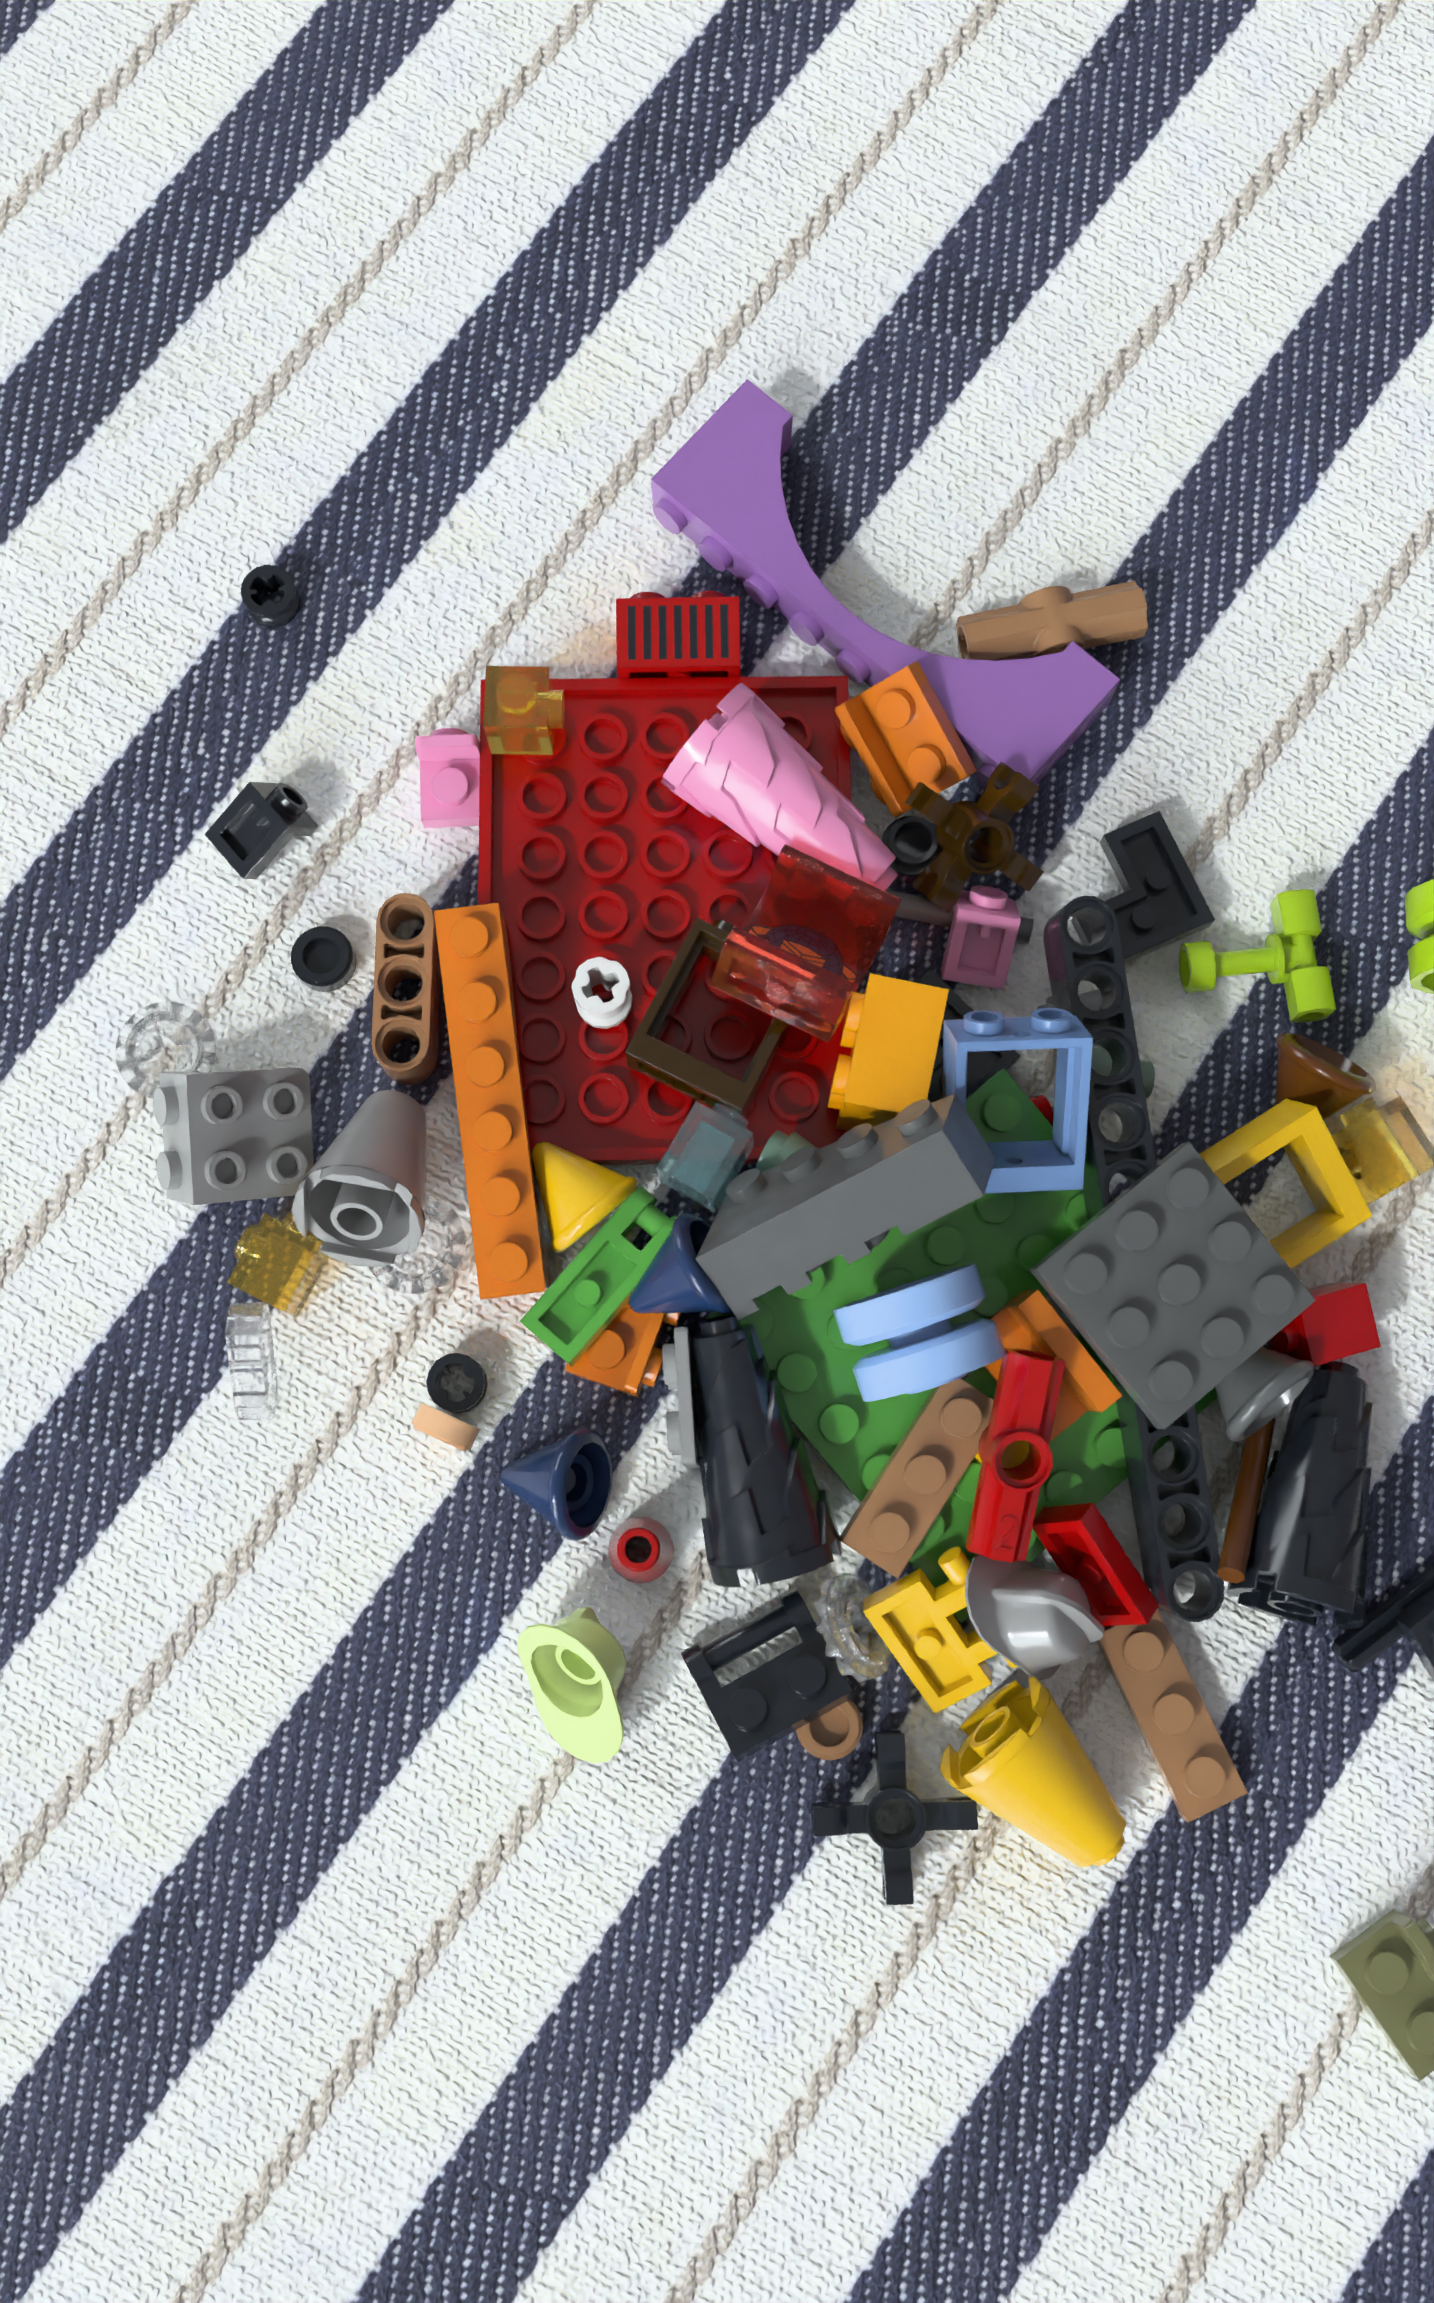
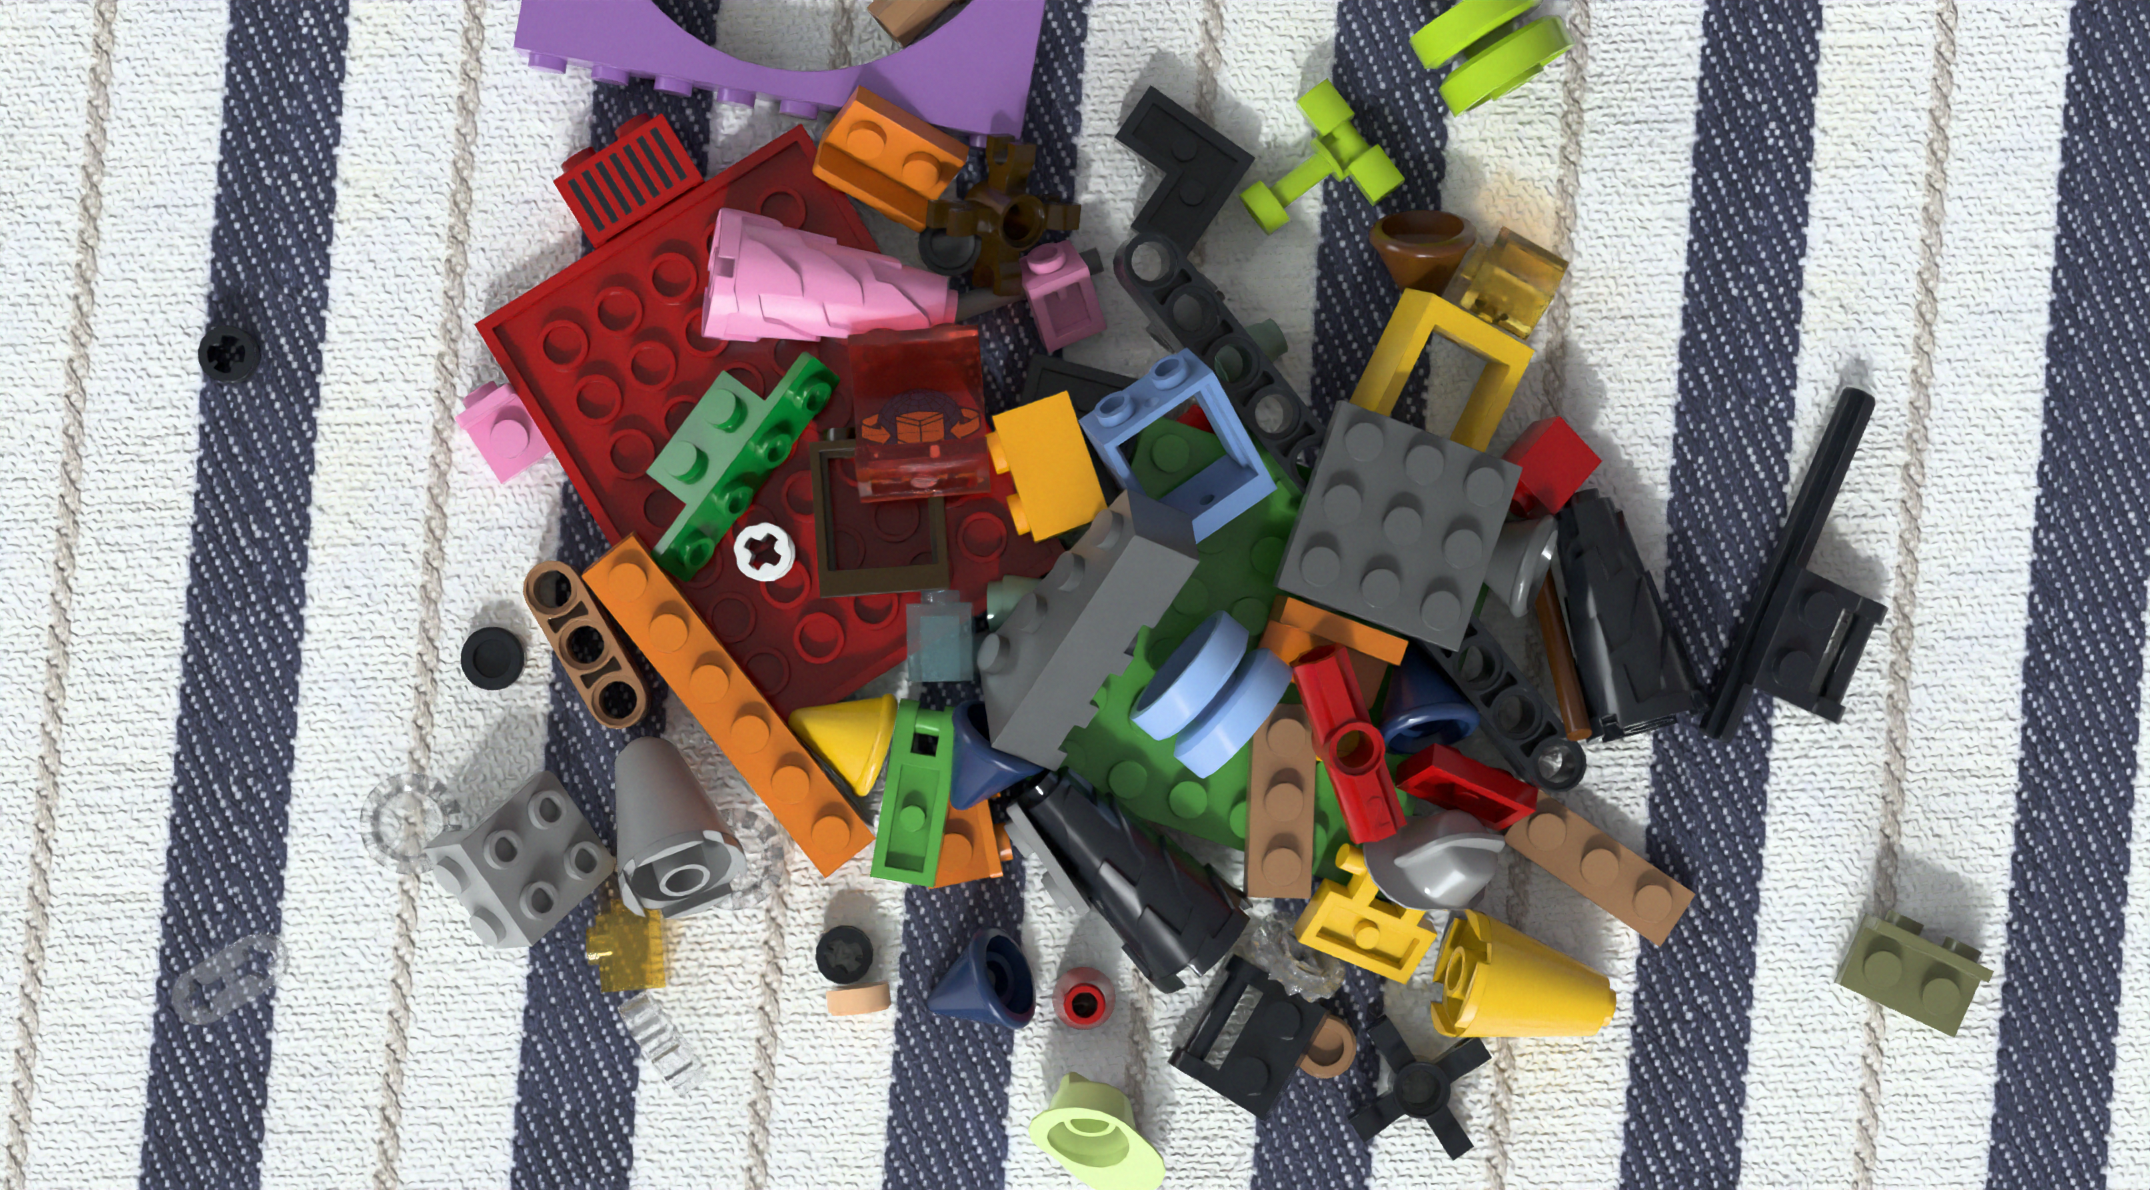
camera: 35 degrees left, 10 degrees up
(260, 826) = (363, 575): black bracket -> none
(521, 710) = (536, 339): clear yellow brick -> none
(624, 898) = (728, 454): none -> green bracket
(1098, 1469) = (1423, 708): none -> dark blue hat

